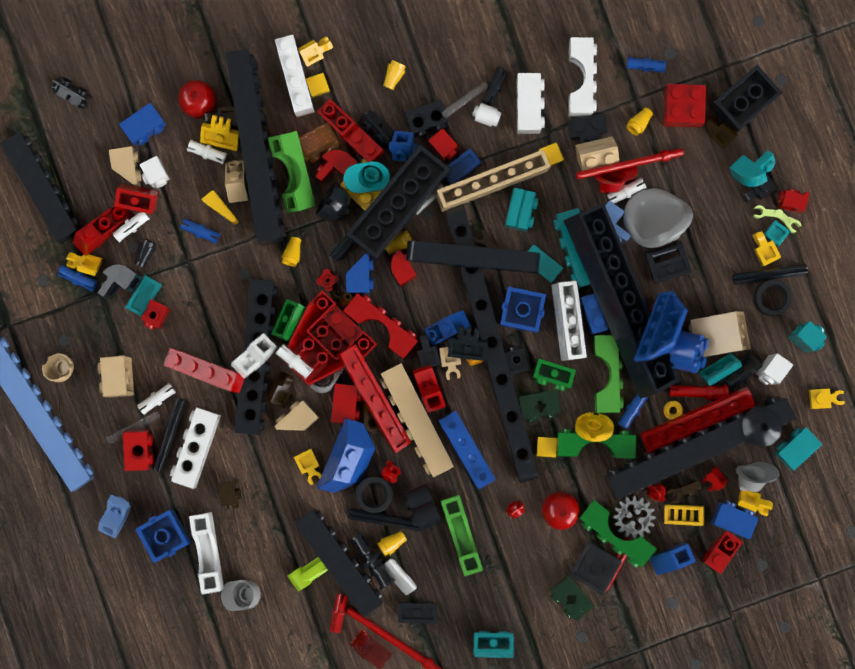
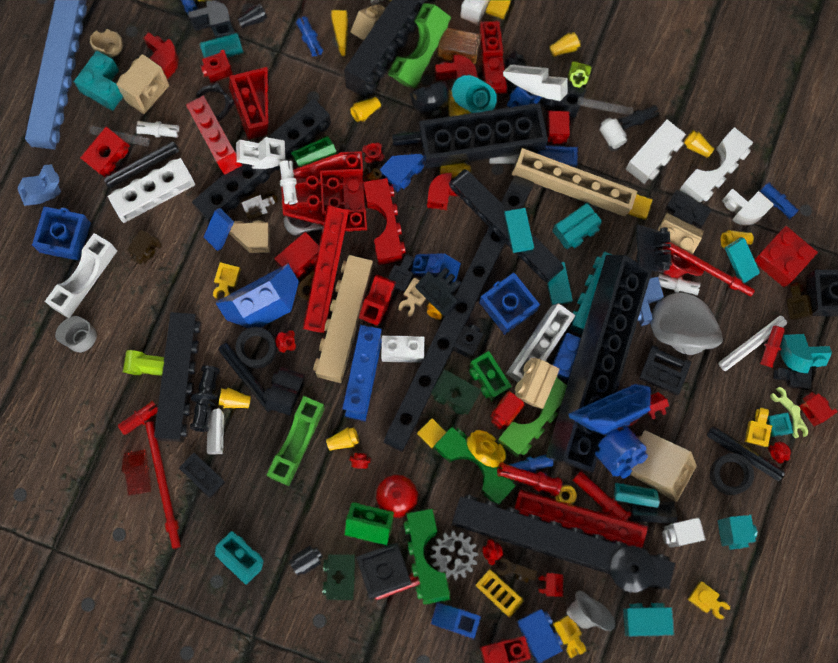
camera: 35 degrees right, 10 degrees down
(77, 403) = (97, 83): none -> teal brick
(112, 341) = (164, 54): none -> red brick
(189, 333) = (216, 88): none -> black cap
(206, 319) = (251, 100): none -> red wedge
(272, 435) = (218, 229): none -> blue tile
(402, 127) = (537, 81): none -> white slope
(425, 91) = (579, 74): none -> lime piece
(476, 406) = (402, 349): none -> white brick
(487, 255) = (519, 230): none -> teal tile
(491, 504) = (344, 439): none -> yellow cone
(538, 607) = (306, 560): none -> black brick
(554, 70) = (698, 144): none -> yellow cone
(560, 546) = (369, 523): none -> green brick
(586, 389) = (506, 411): none -> red brick
(590, 187) = (650, 248): none -> black hinge
(591, 353) = (536, 382): none -> tan brick
(631, 93) = (747, 212): none -> white brick
(648, 418) = (538, 481): none -> red pin
(656, 134) = (742, 260): none -> teal tile
(682, 292) = (658, 403): none -> red tile
(712, 189) = (750, 344): none -> white axle
(728, 181) = (772, 346): none -> red axle
(792, 253) = (779, 452): none -> red plate

